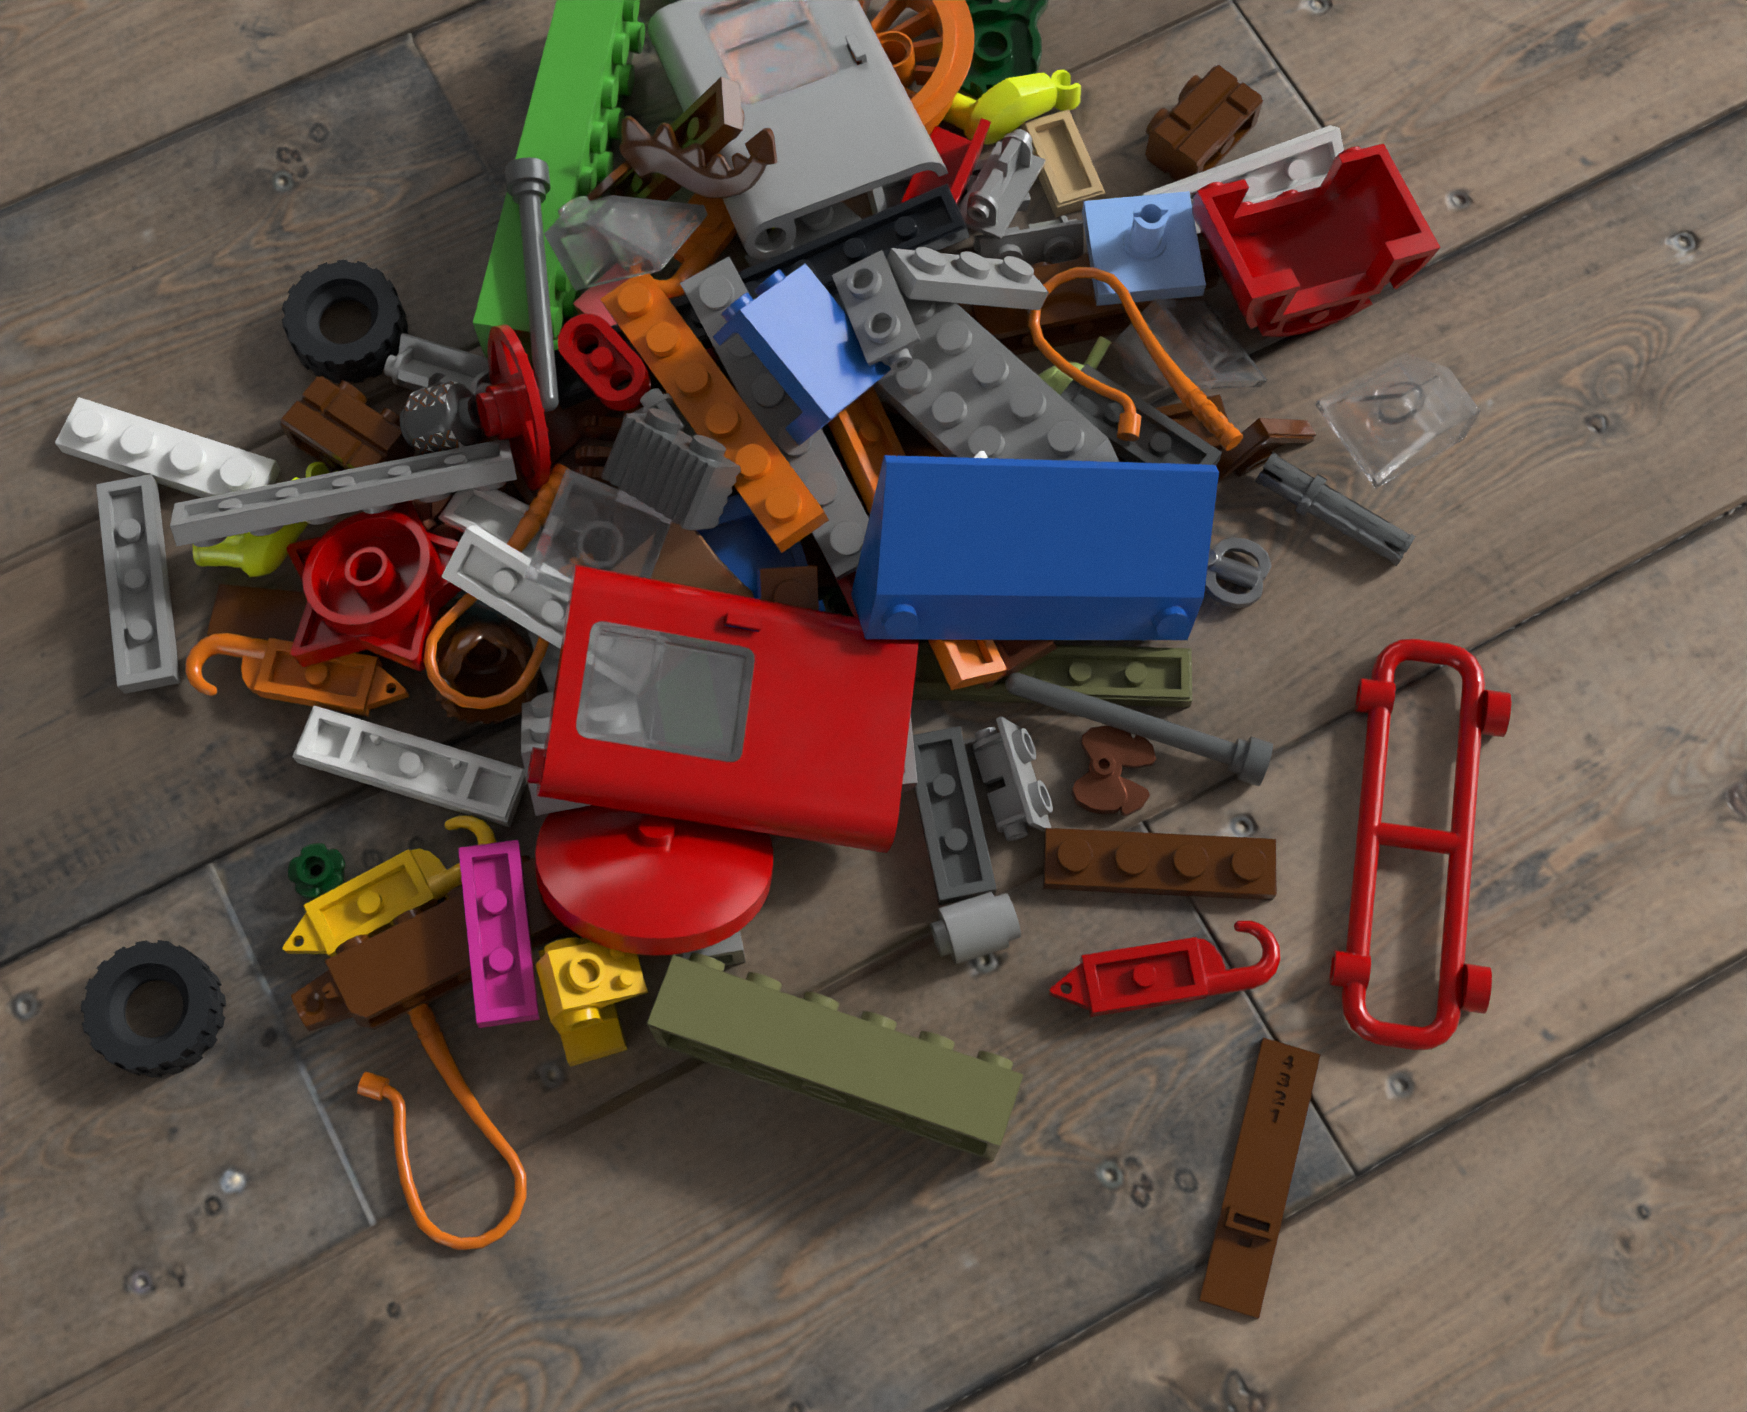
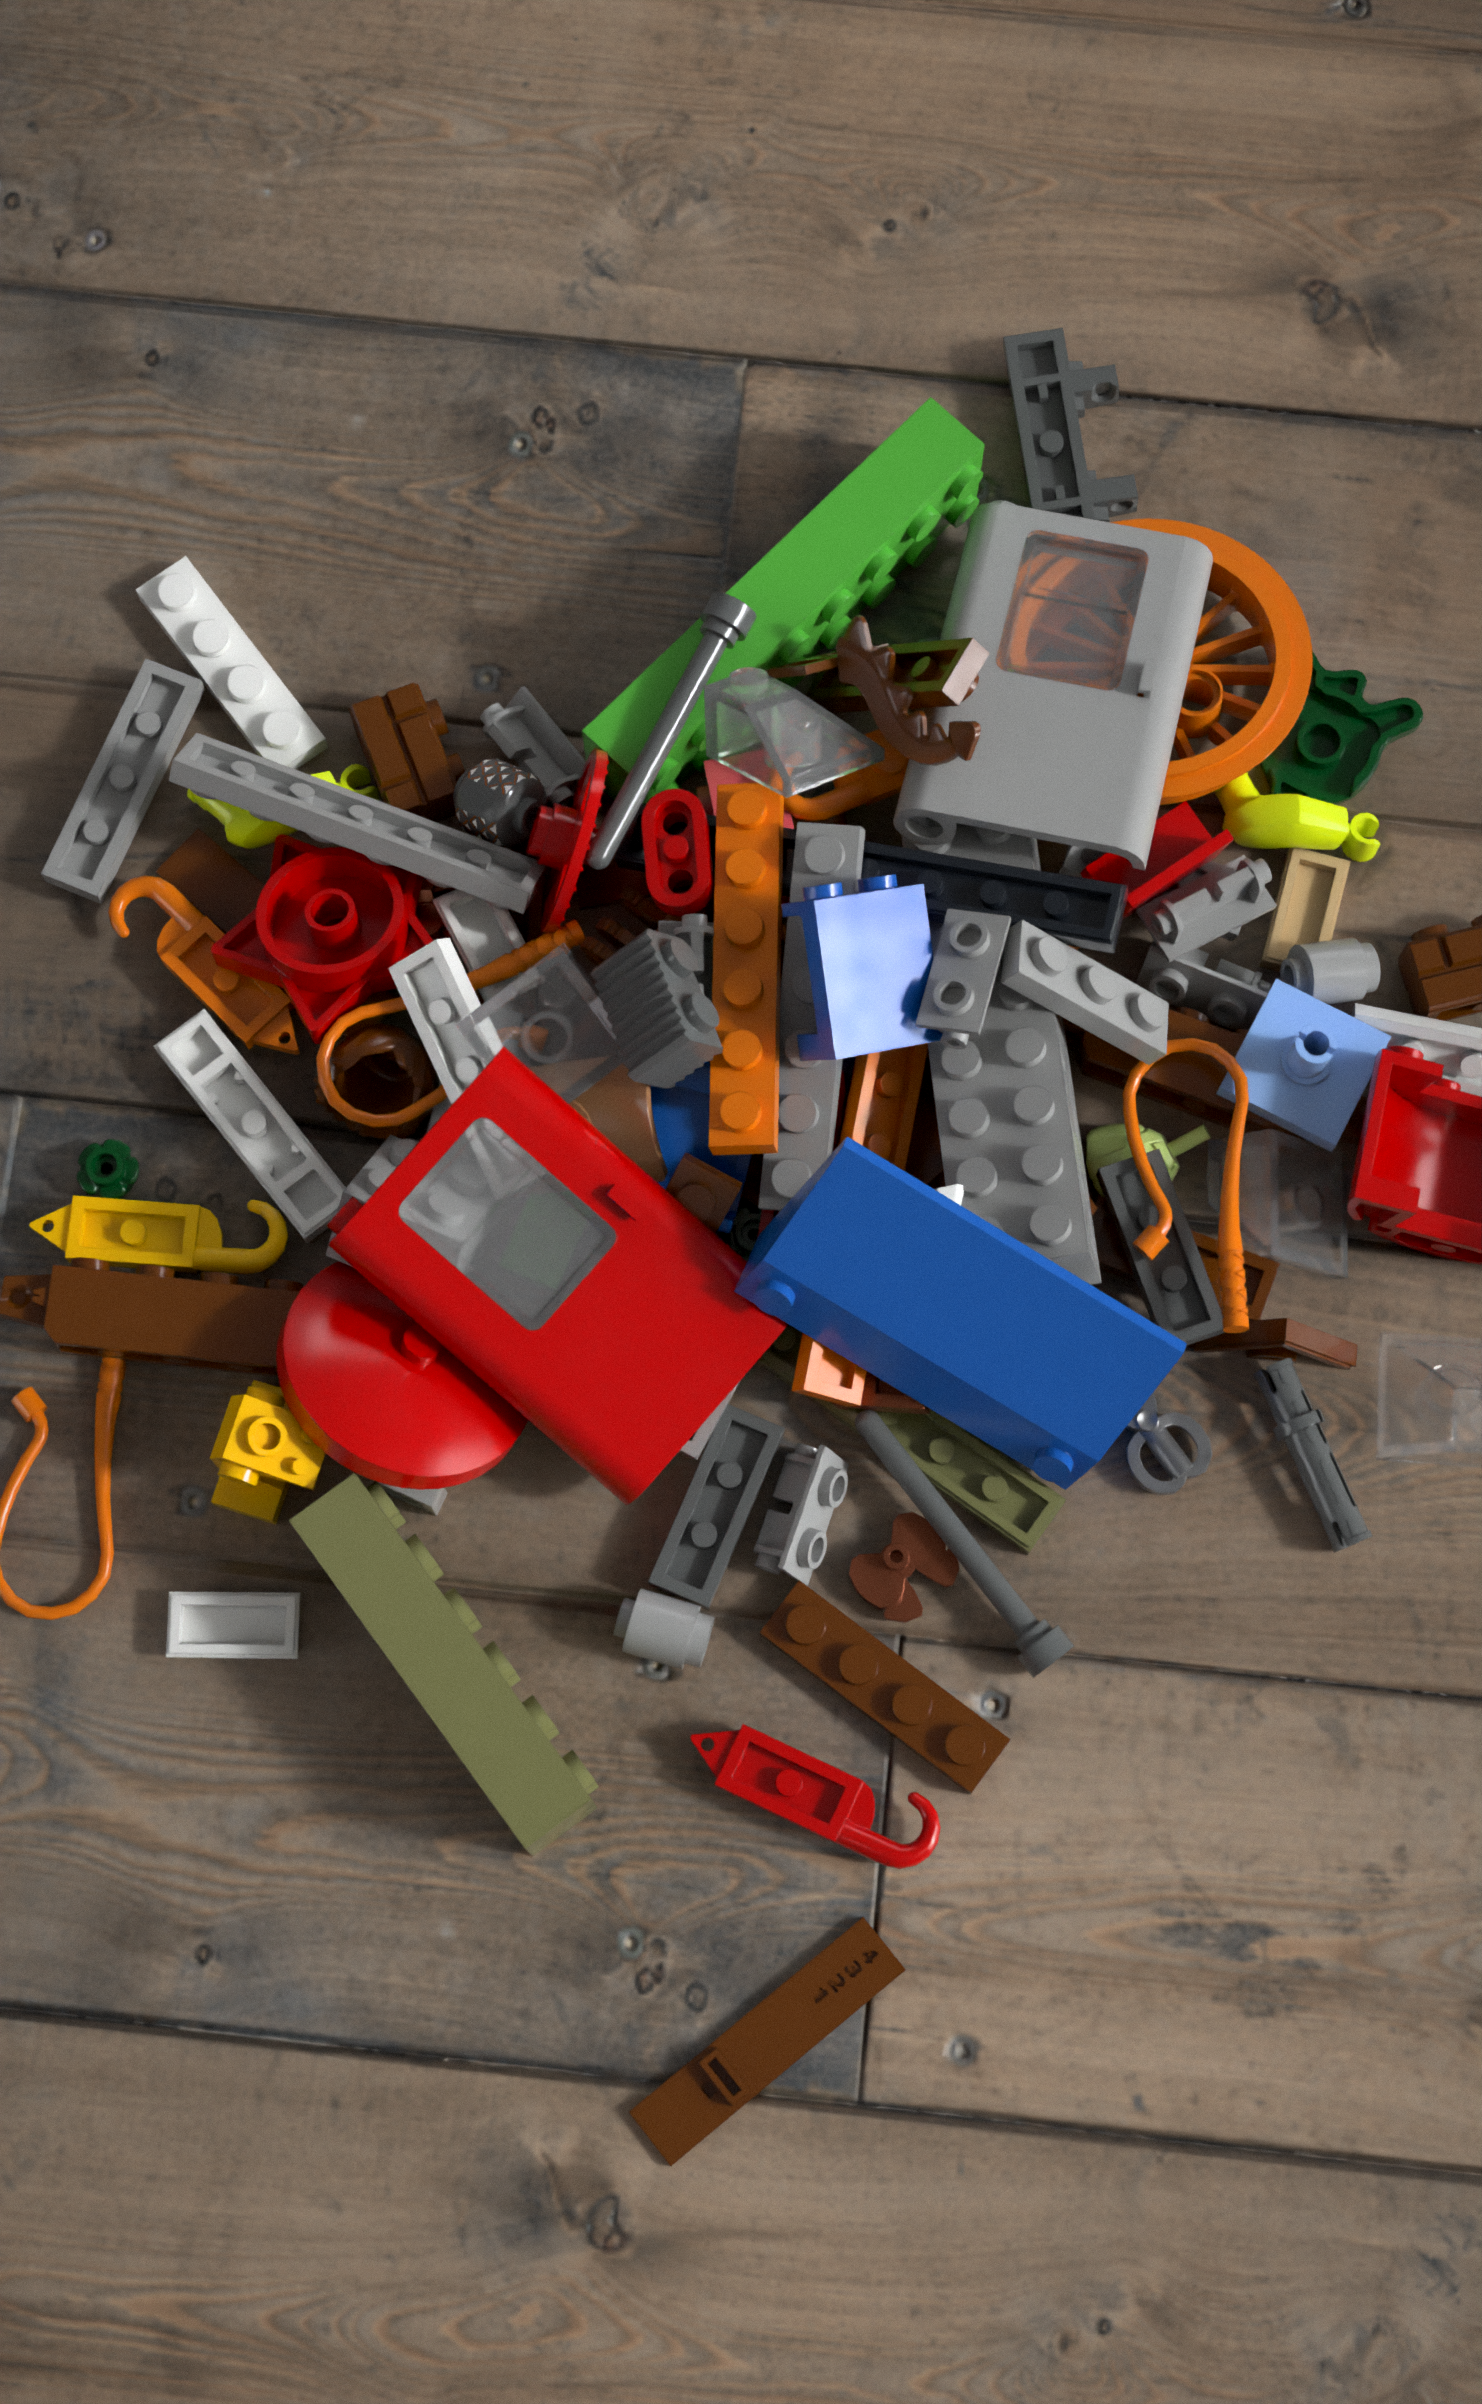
camera: 35 degrees right, 5 degrees up
(332, 285) = (480, 590): black tyre -> none
(498, 934) = (219, 1344): dark pink plate -> none
(648, 1144) = (233, 1625): none -> white tile
(1115, 175) = (1332, 969): none -> light grey brick
(1460, 984) = (1084, 1997): red bar -> none

